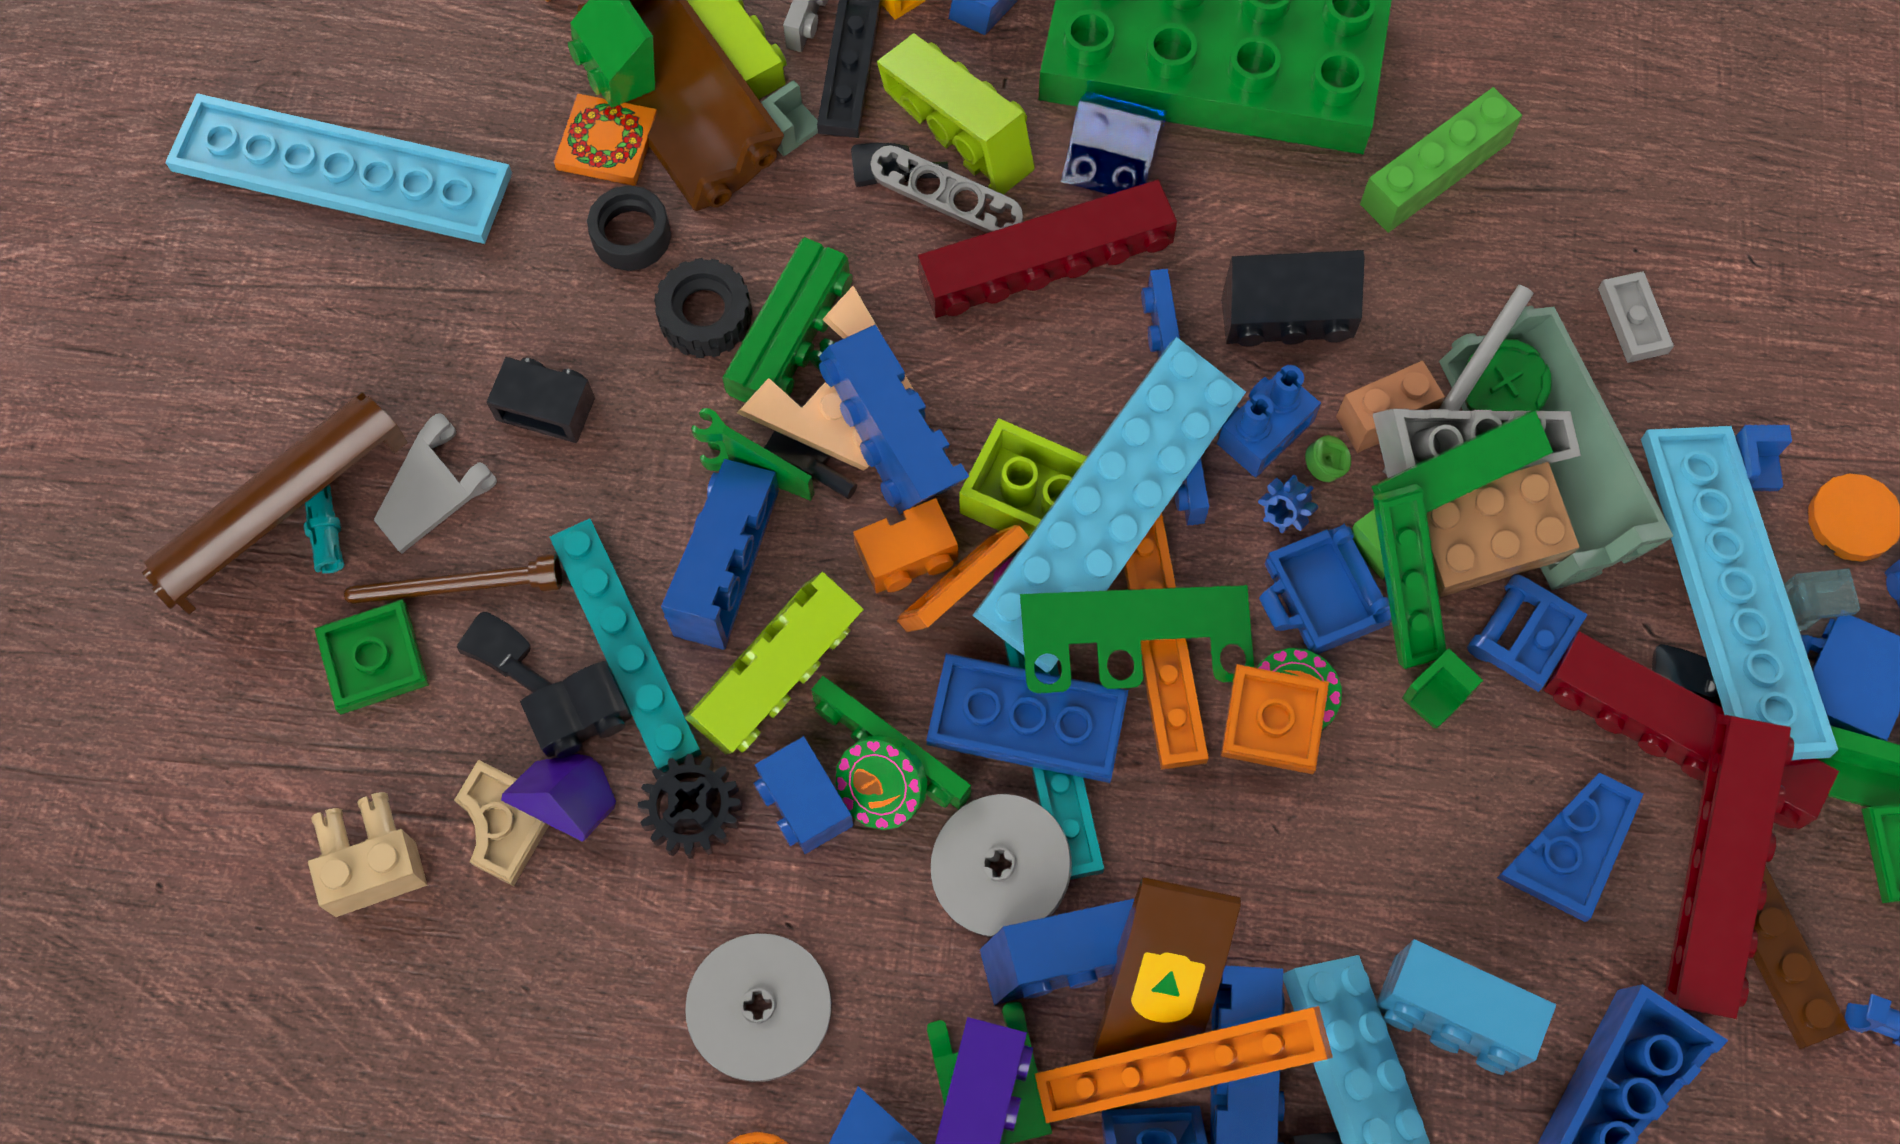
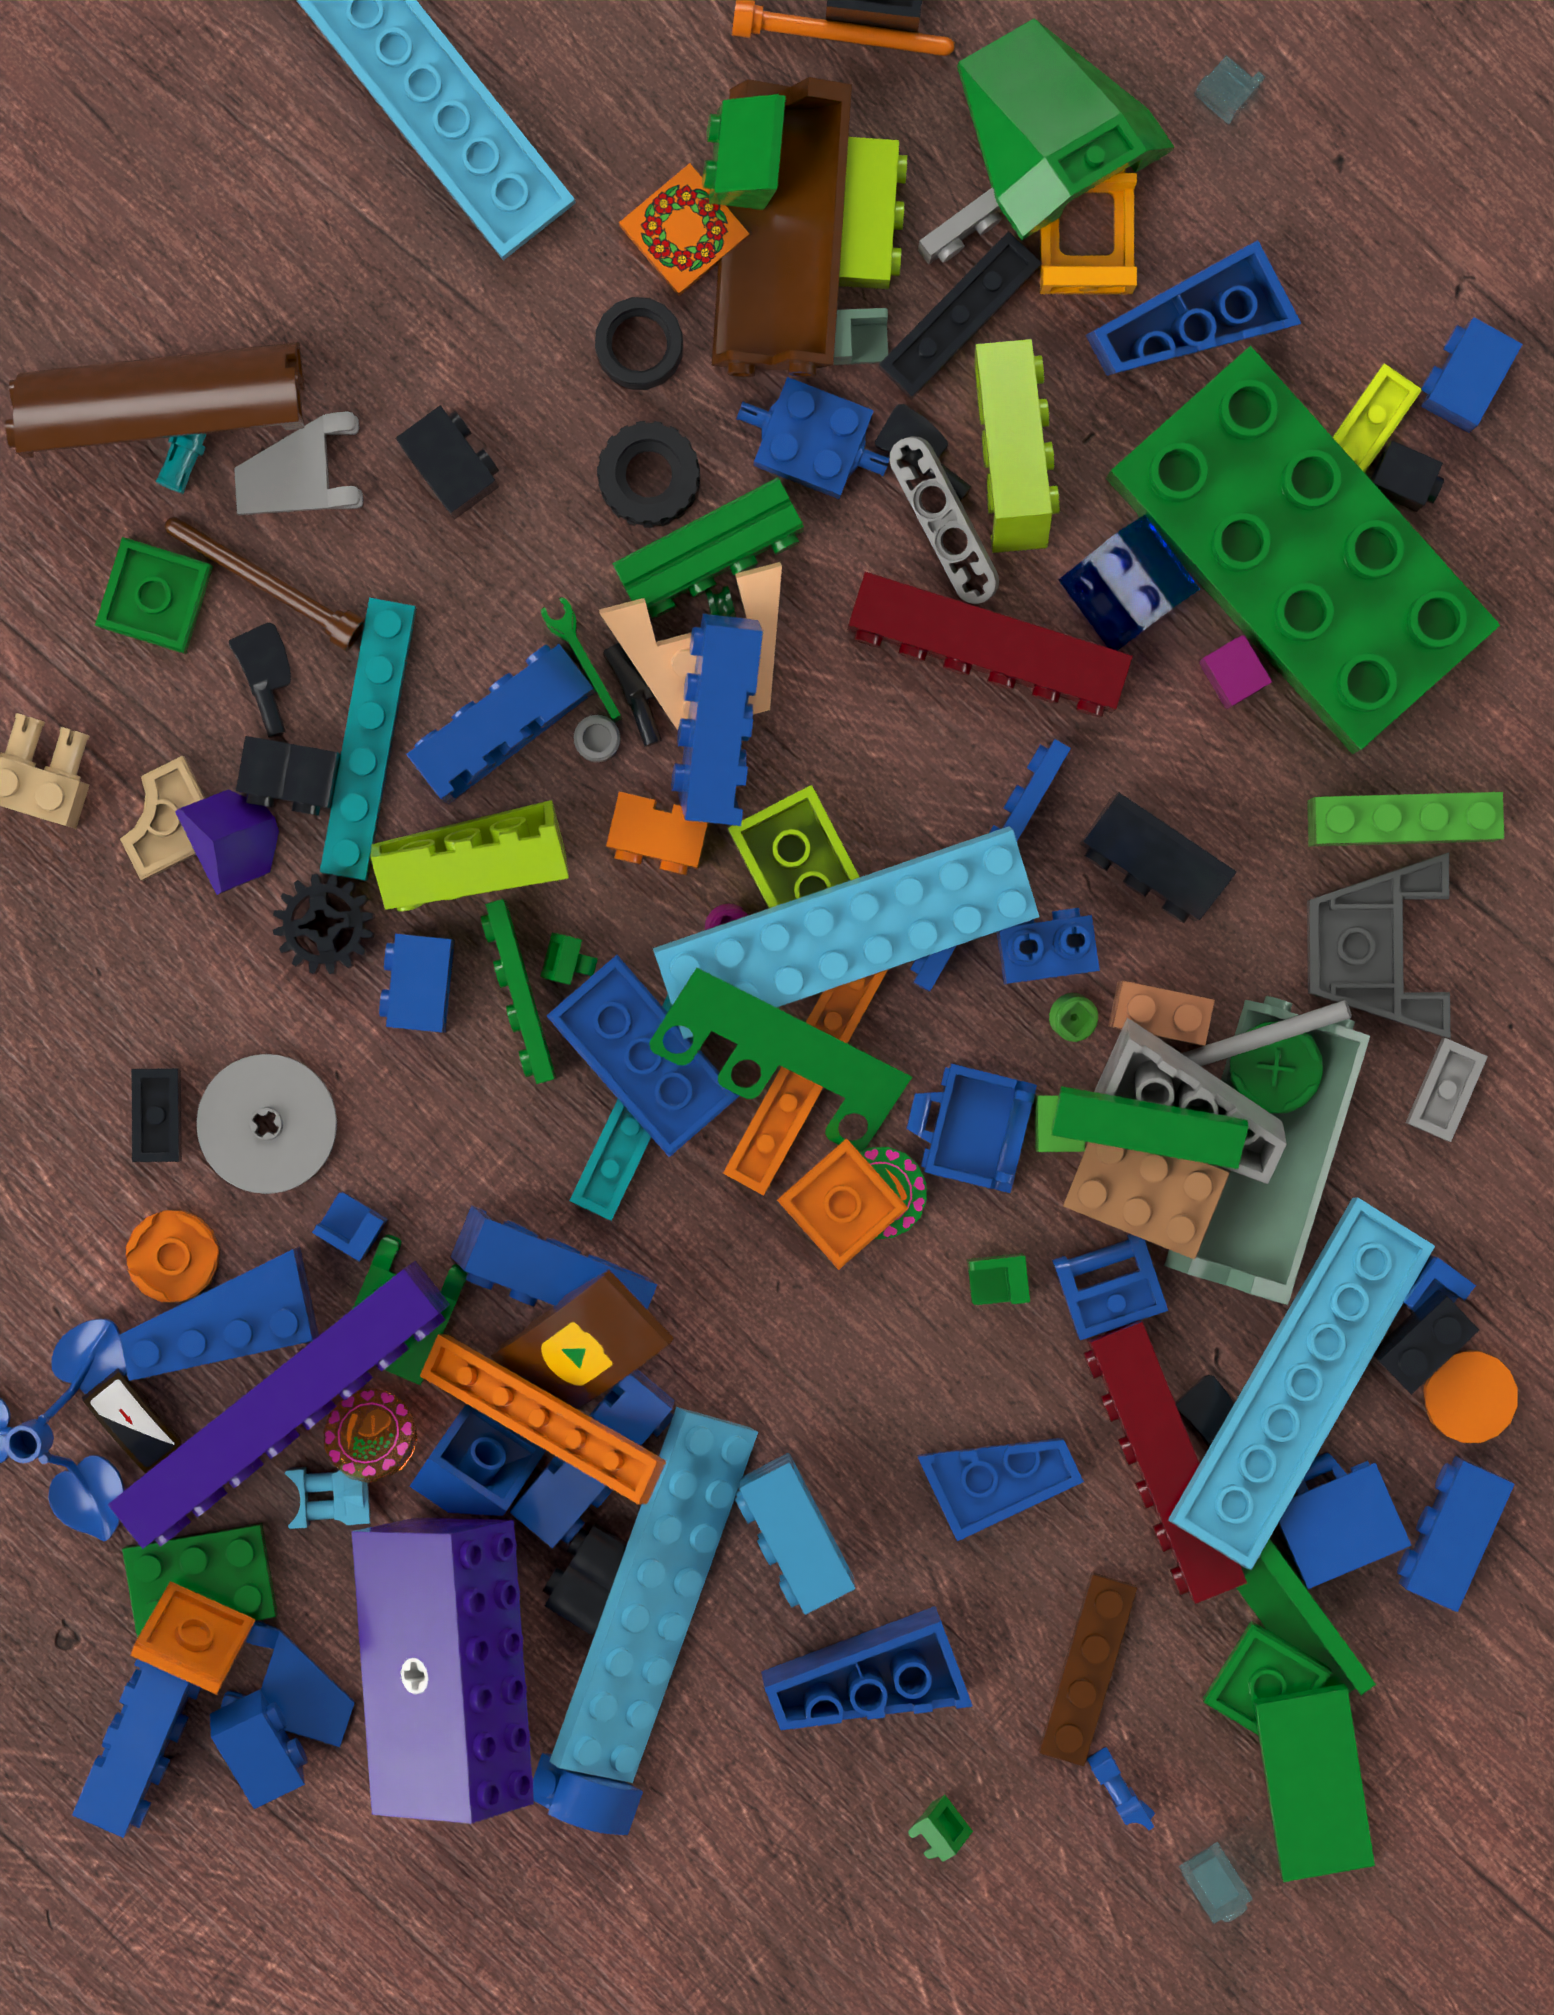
camera: 35 degrees right, 20 degrees up
(658, 1068) = (156, 1115): none -> black plate
(806, 518) = (597, 738): none -> light grey tile
(807, 204) = (813, 438): none -> blue plate
(881, 782) = (486, 1021): green tile -> none
(892, 1039) = (350, 1226): none -> blue panel
(907, 693) = (564, 959): none -> green tile
(962, 578) = (676, 900): orange tile -> none
(977, 837) = (499, 1156): light grey piece -> none
(1237, 149) = (1235, 671): none -> magenta panel
(1288, 504) = (1003, 1033): blue gear -> none
(1410, 575) = (1038, 1177): green tile -> none
(1485, 264) = (1359, 946): none -> dark grey wing
(1728, 865) = (1087, 1585): dark red brick -> none
(1792, 494) = (1425, 1341): none -> black piece
(1821, 596) = (1369, 1440): clear light blue panel -> none

